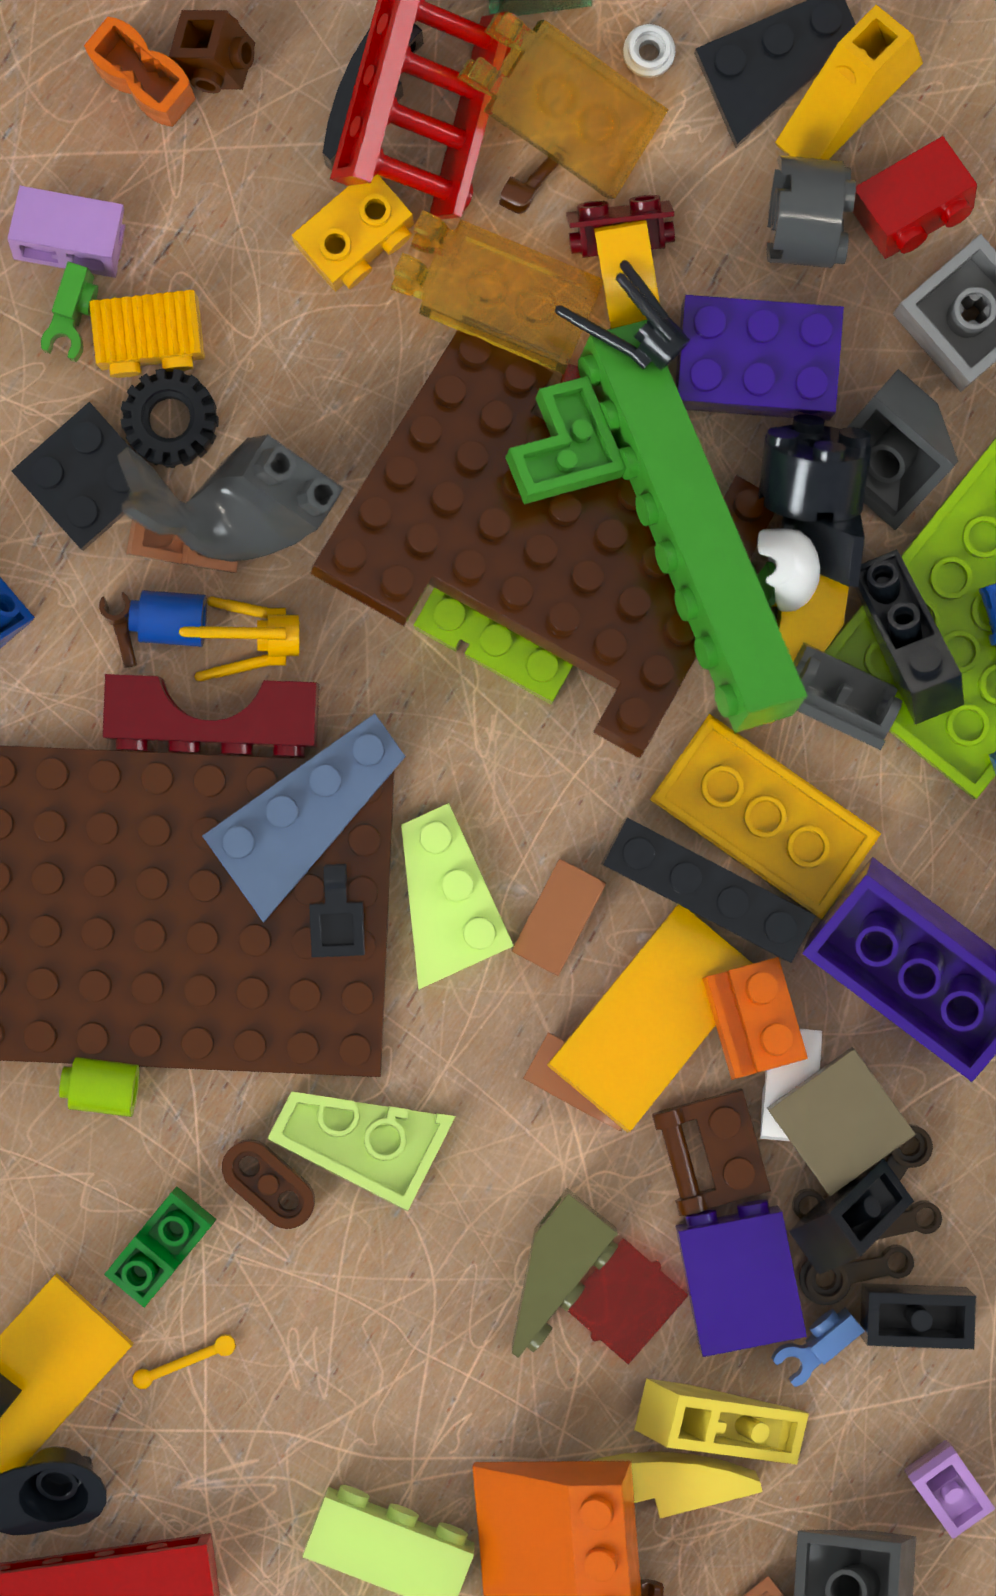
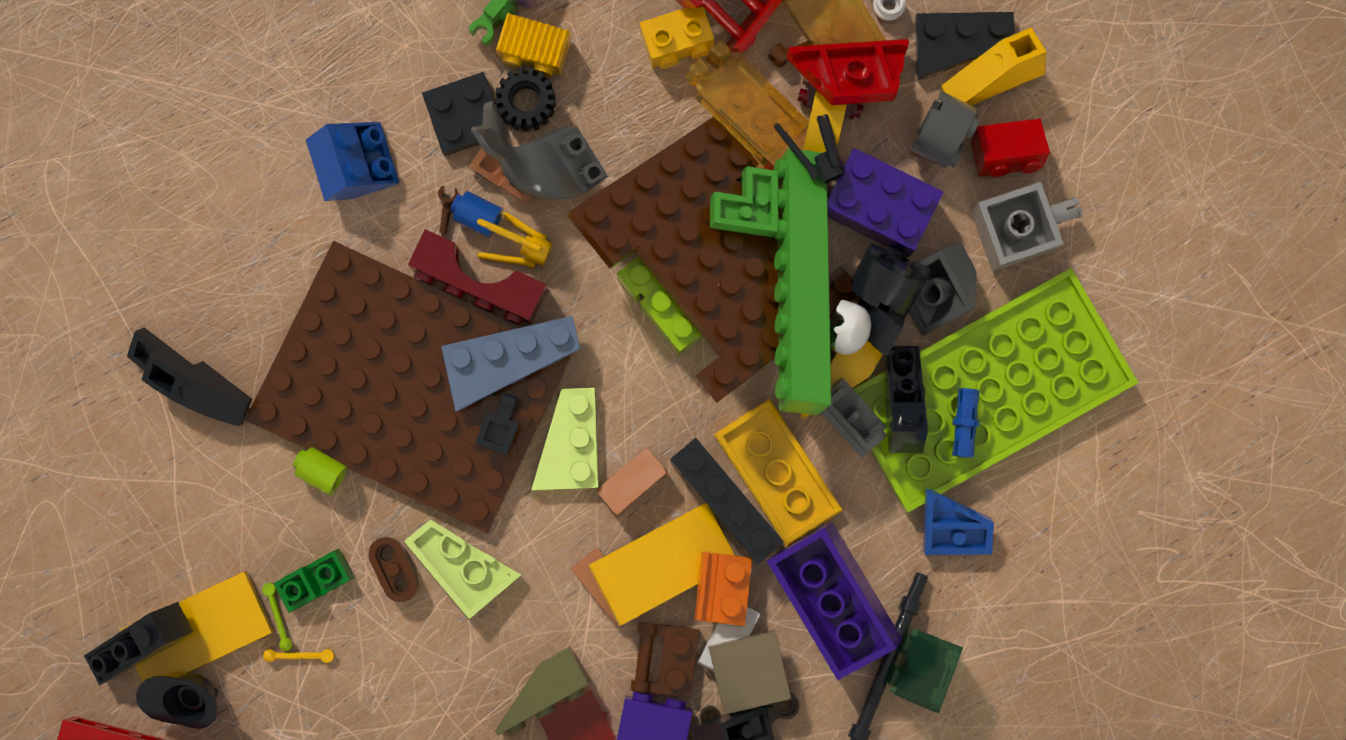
camera: 20 degrees right, 5 degrees down
(102, 1286) = (269, 590): none -> lime hinge
(636, 178) = (852, 70): none -> red wing

